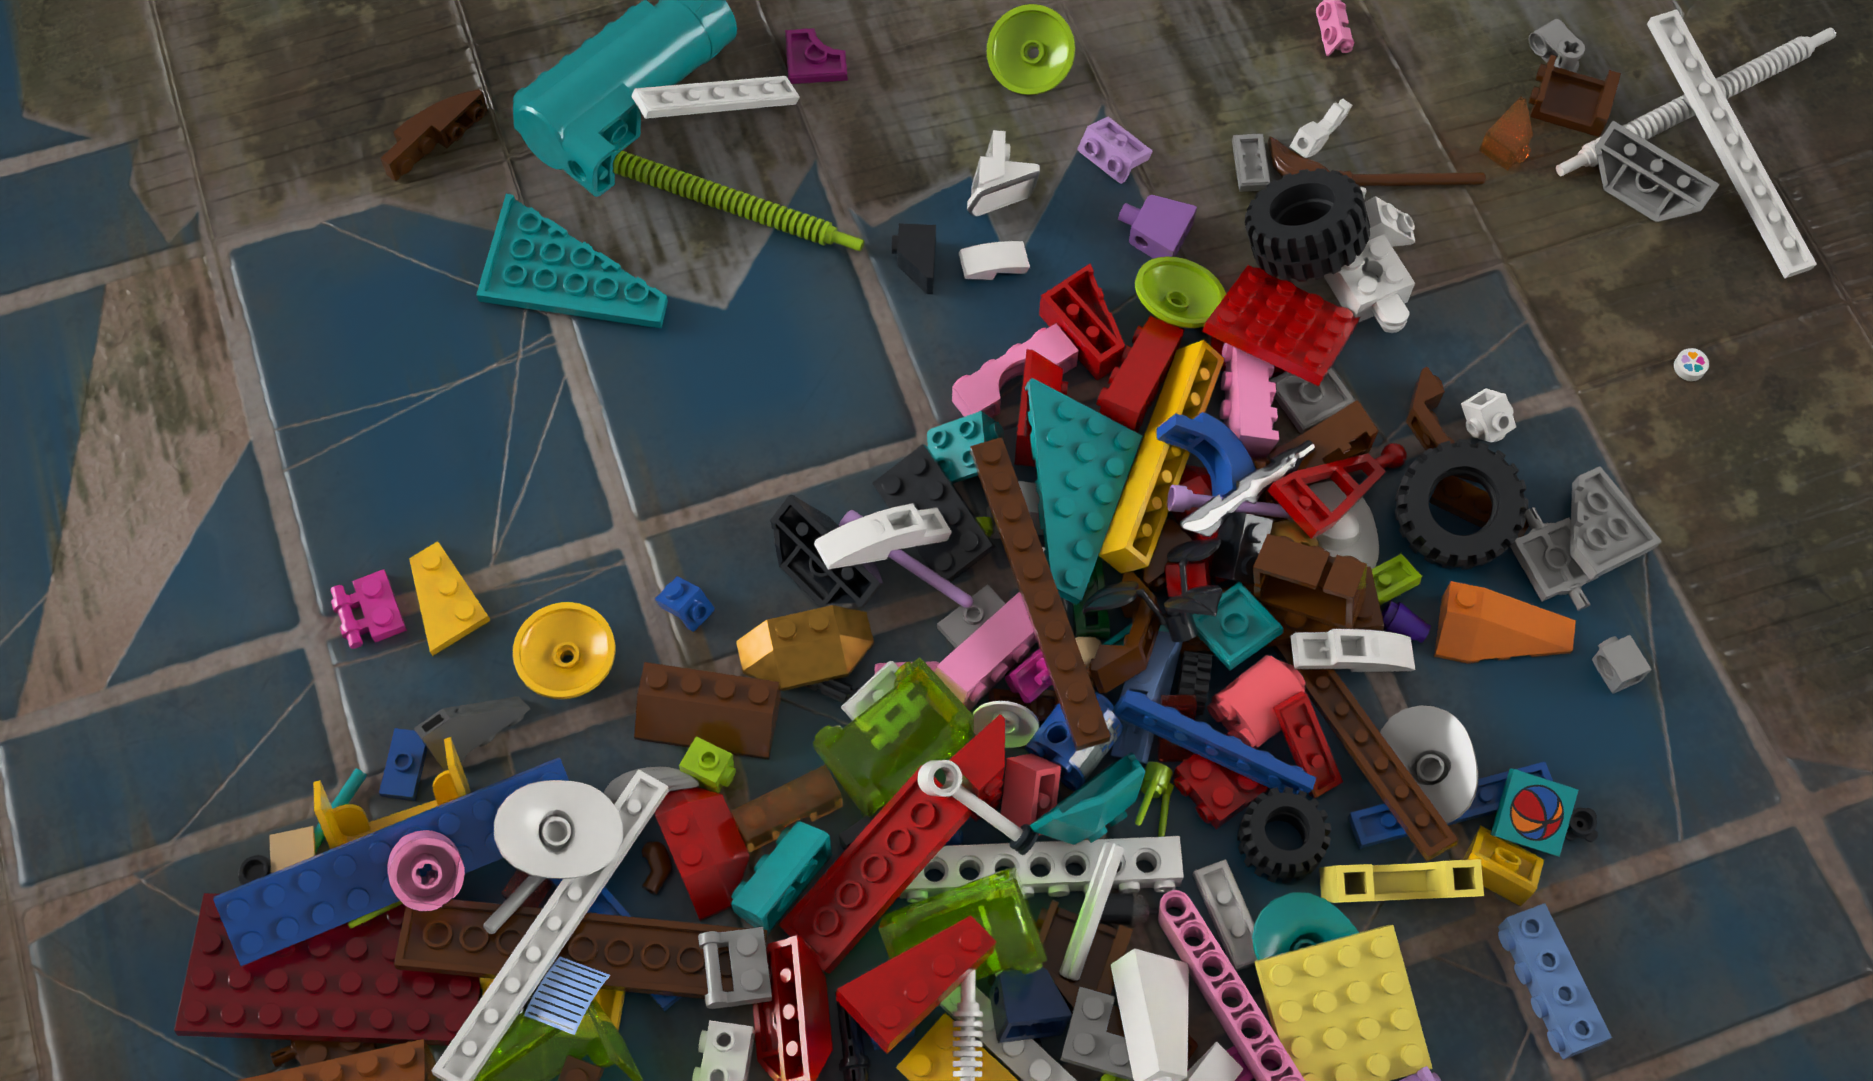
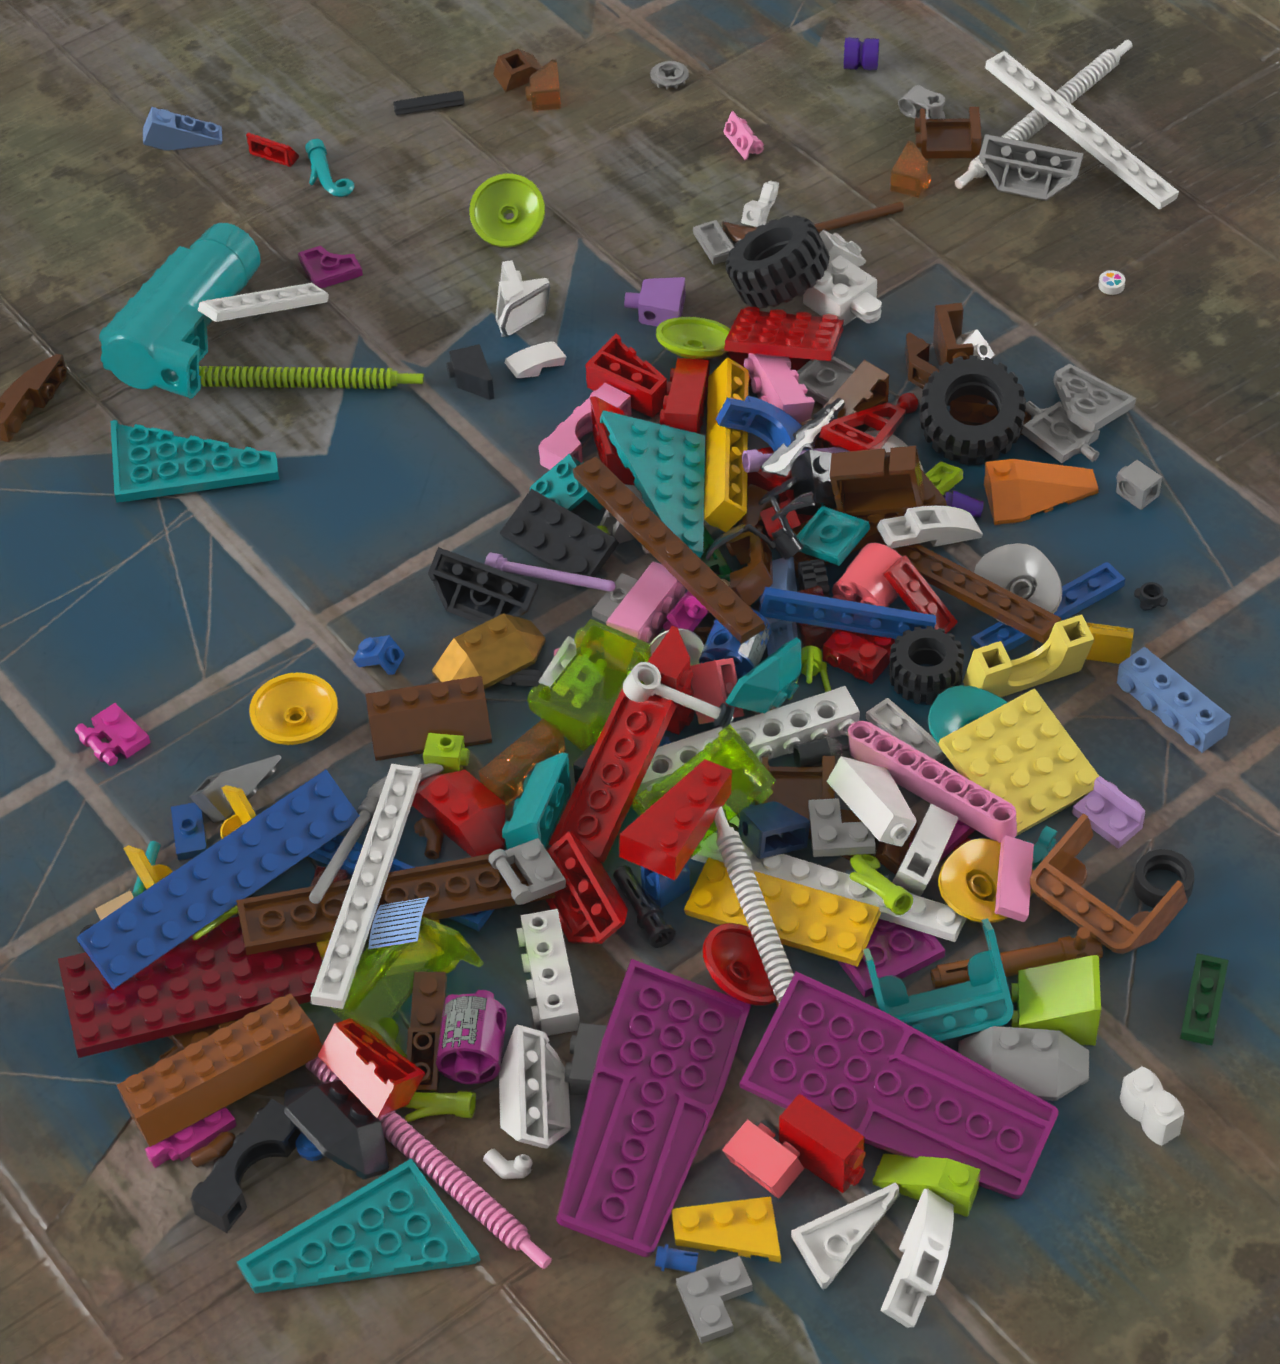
camera: 15 degrees left, 15 degrees down
(439, 885) = (259, 854): bright pink brick -> none
(444, 599) = (175, 709): yellow wing -> none
(558, 829) = (345, 810): white hat -> none
(879, 533) = (523, 547): white slope -> none
(1091, 911) = (797, 751): white axle -> none
(1113, 149) = (600, 262): lavender bracket -> none
(1471, 377) = (947, 329): none -> reddish brown panel
(1534, 812) = (1112, 595): tile -> none

